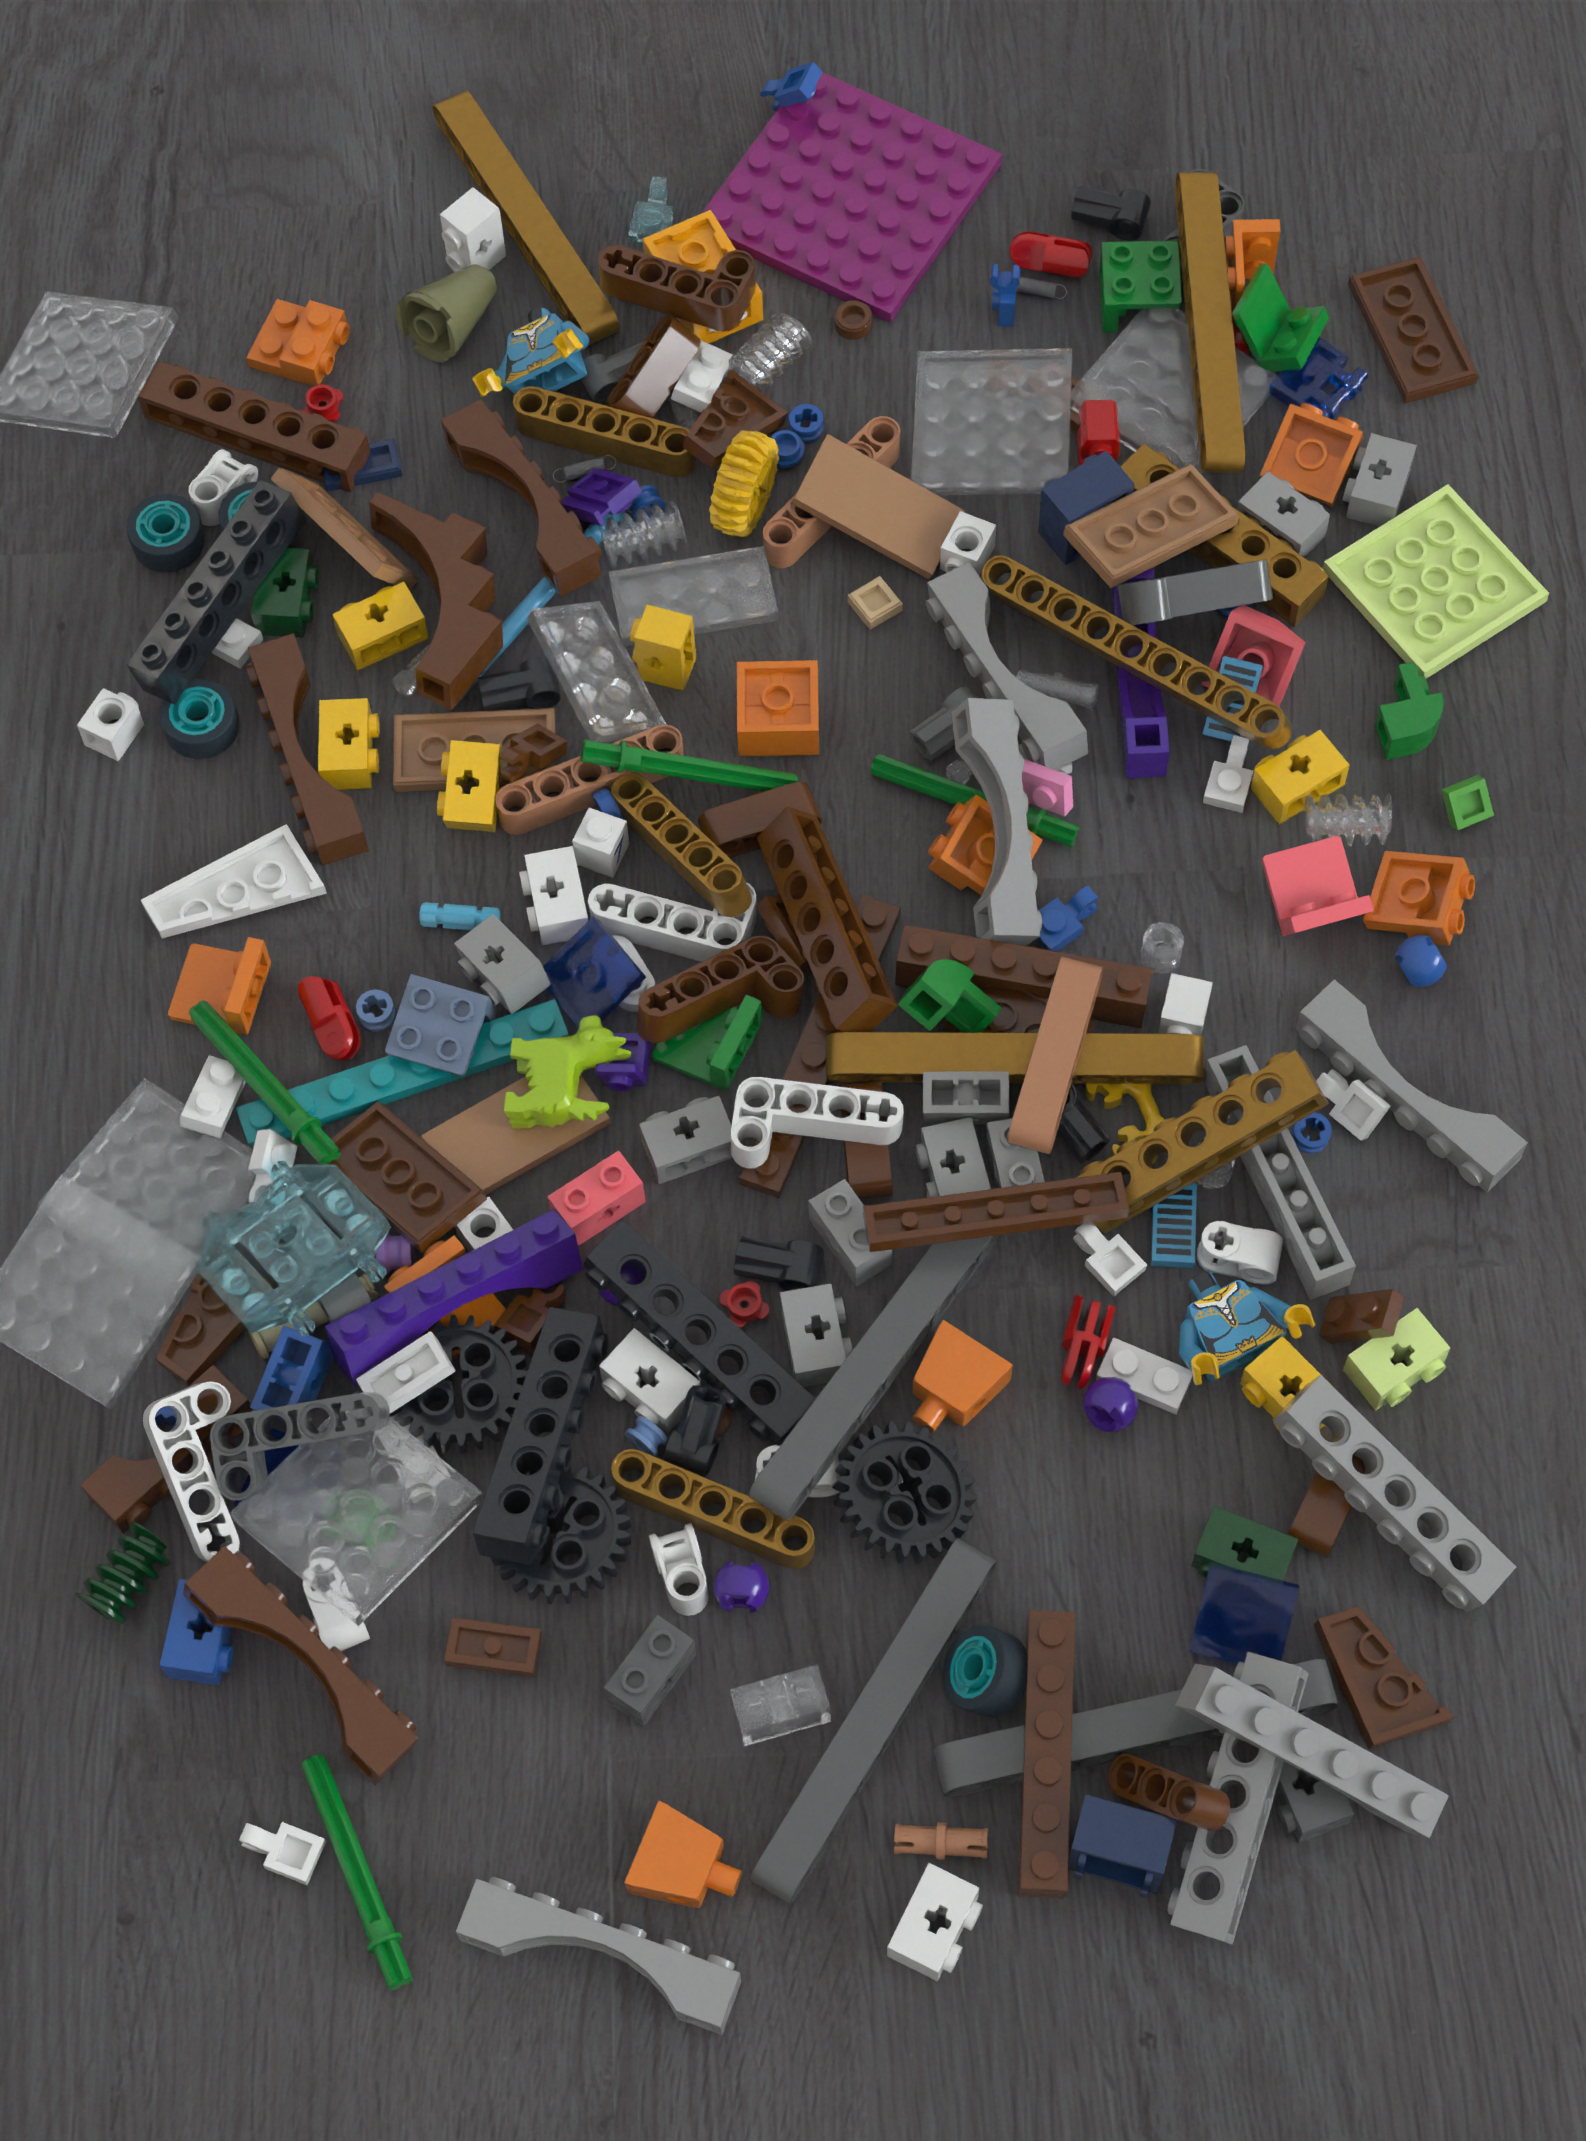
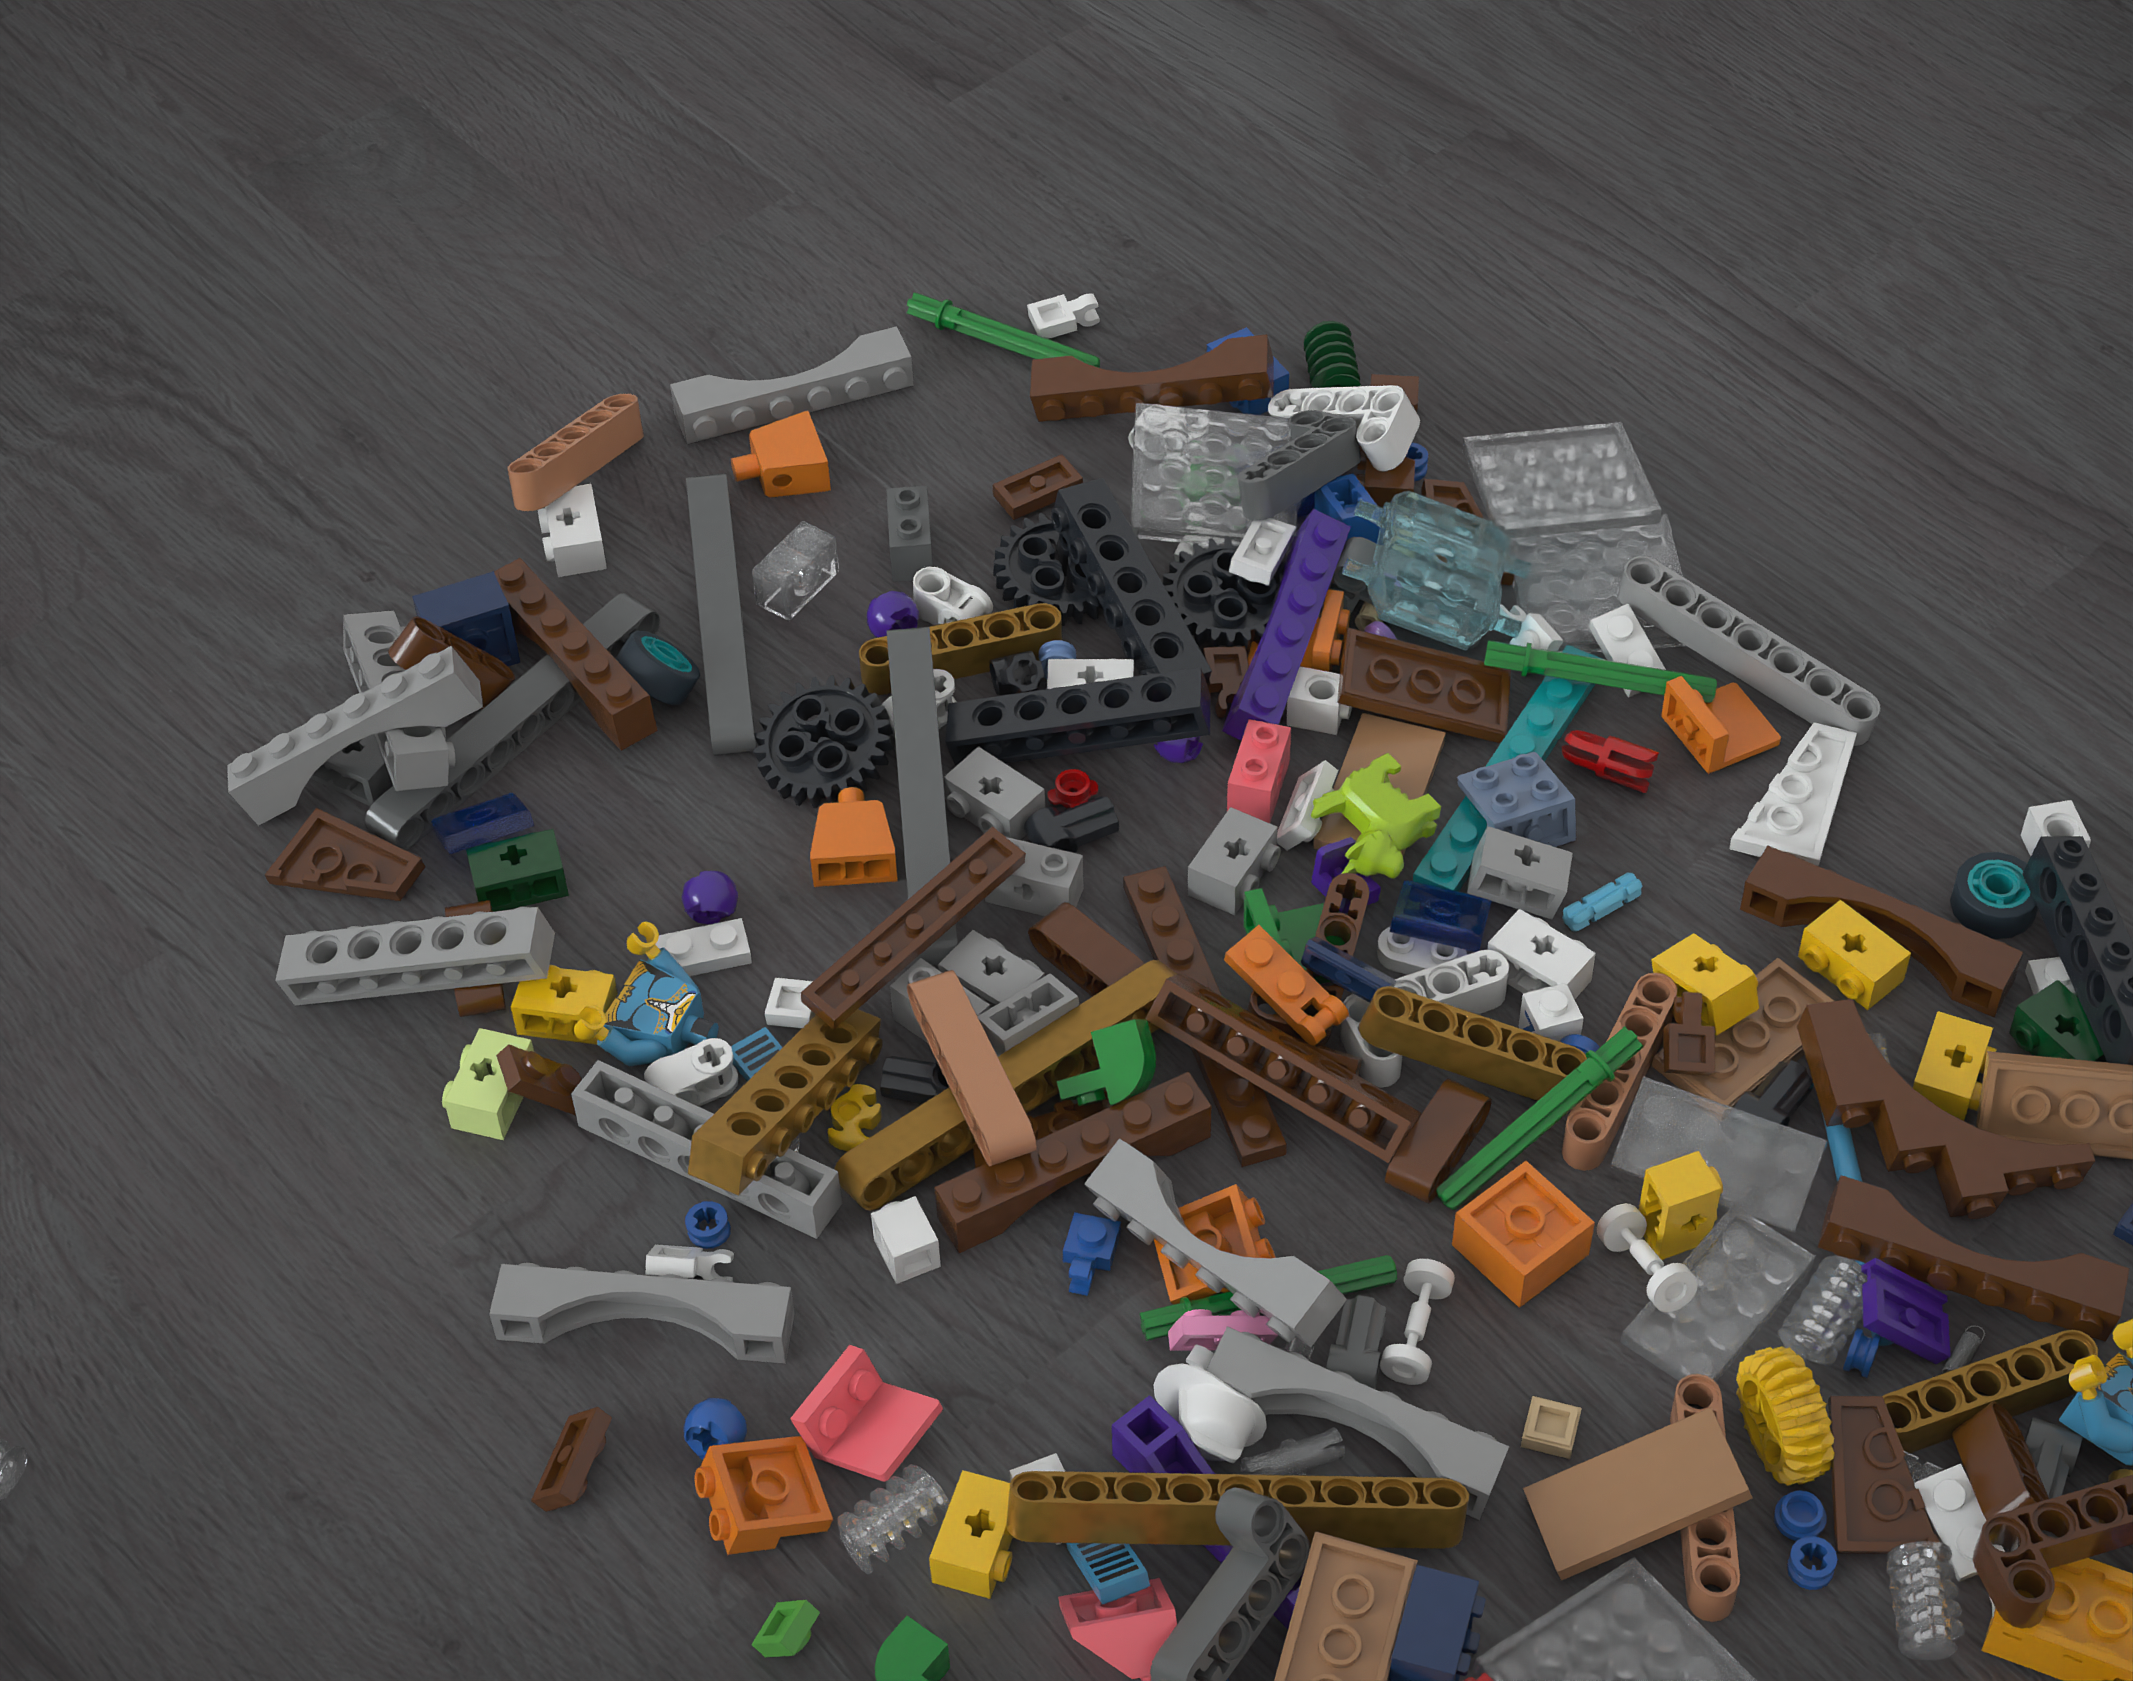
camera: 140 degrees right, 15 degrees down
(141, 1031) = (1746, 649): none -> light grey beam
(384, 1002) = (1595, 799): medium blue bush -> none
(588, 1145) = (1297, 821): none -> white plate
(715, 945) = (1344, 969): none -> dark blue slope
(729, 600) = (1670, 1285): none -> white wheel
(770, 971) = (1285, 985): none -> orange plate
(814, 1122) = (1171, 891): white beam -> none
(857, 2010) = (575, 452): none -> nougat beam
(863, 734) = (1404, 1361): none -> white wheel
(941, 1841) = (608, 577): nougat pin -> none
(971, 534) = (1515, 1554): white brick -> none
(1084, 1342) = (770, 930): red arm -> none
(1102, 721) = (1210, 1411): none -> white piece
(1166, 956) = (974, 1295): clear wheel -> none
(1531, 1012) = (571, 1459): none -> reddish brown plate

